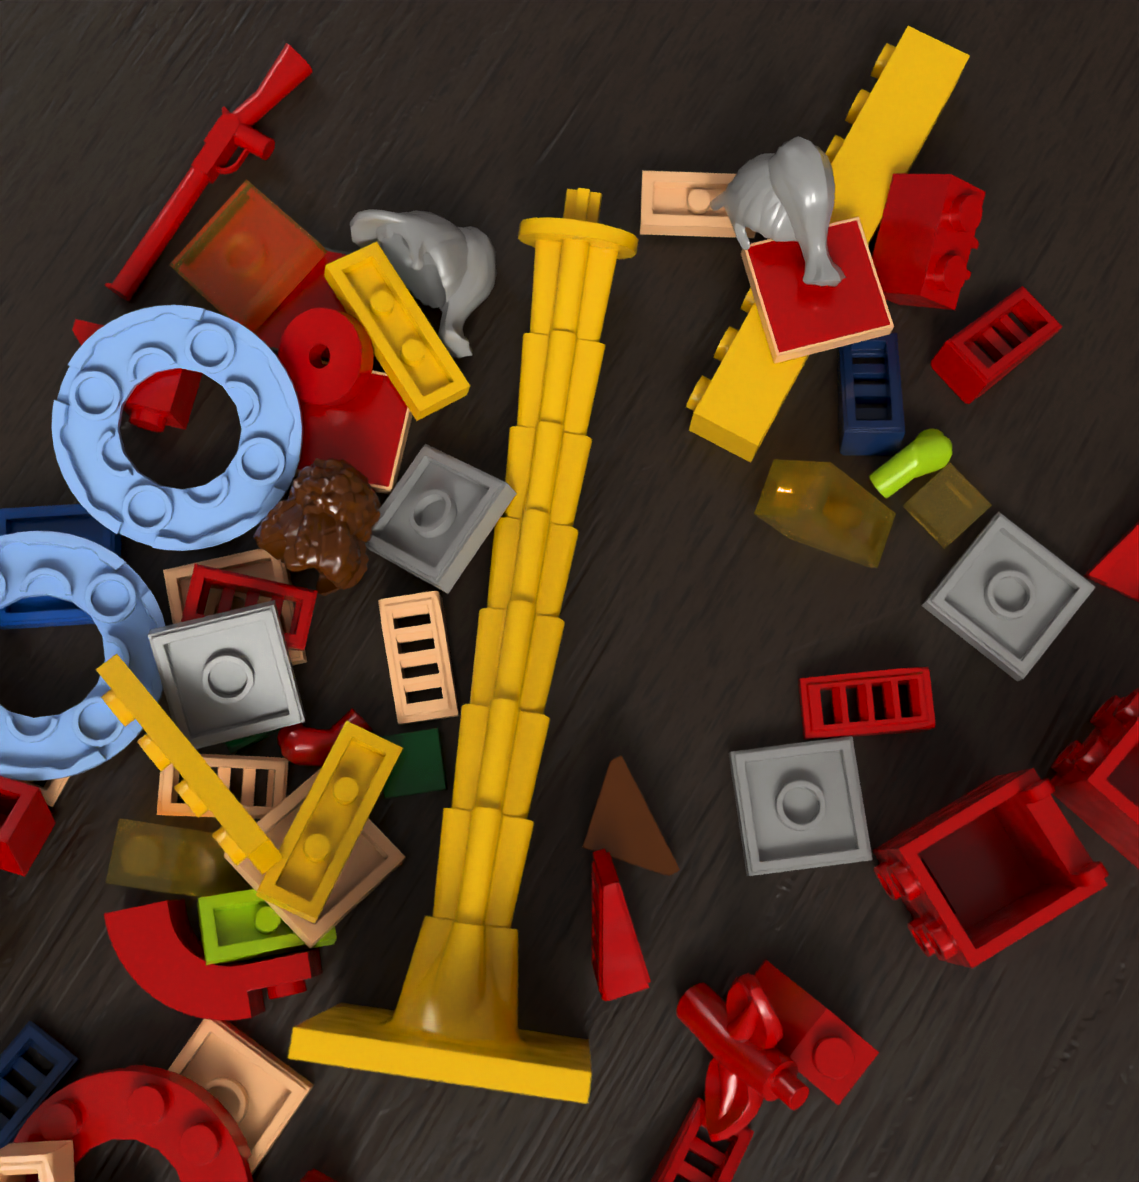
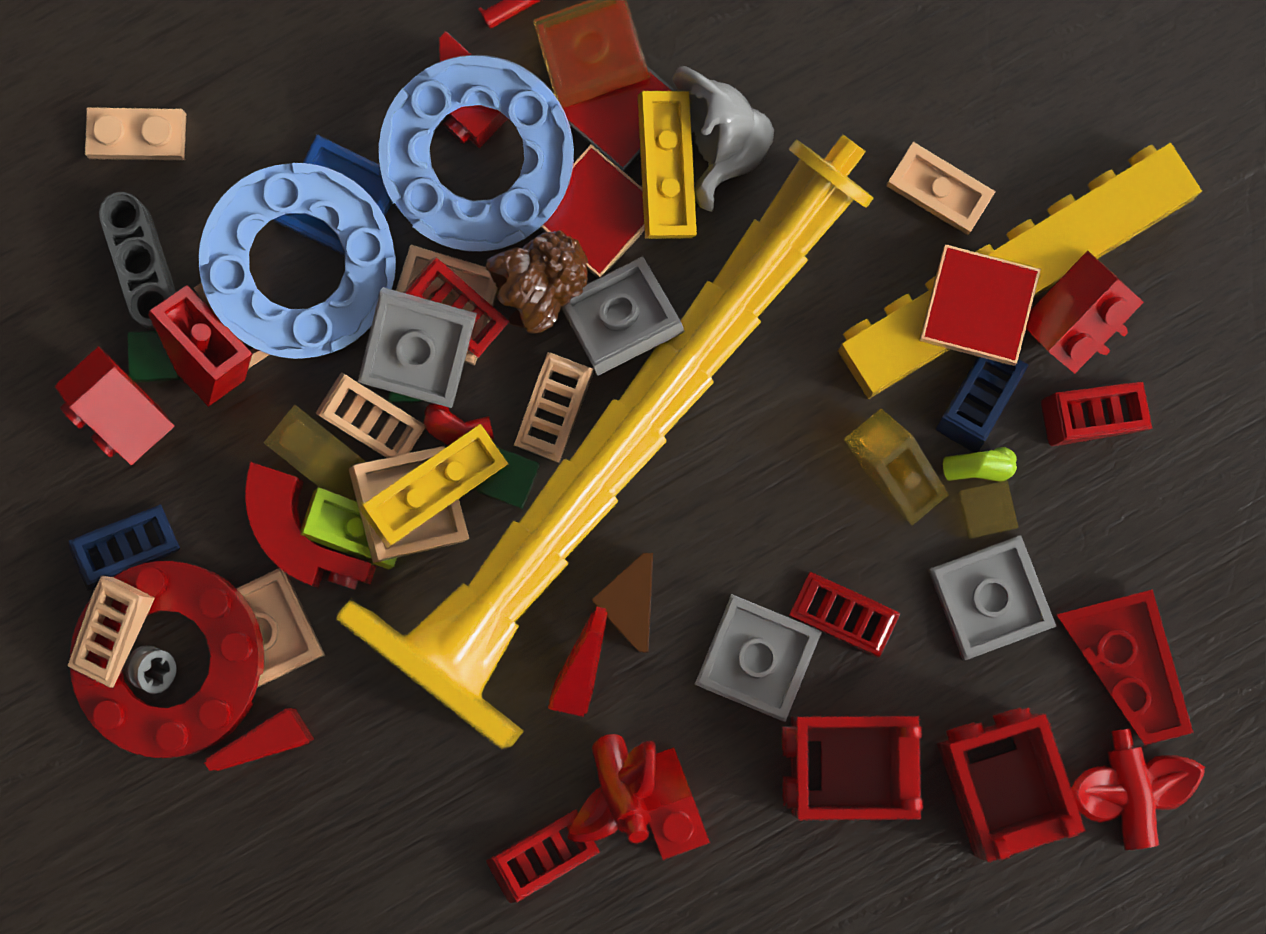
camera: 30 degrees right, 5 degrees up
(201, 786) = (362, 415): yellow plate -> none
(349, 359) = (625, 161): red piece -> none
(787, 200) = (989, 232): light grey piece -> none

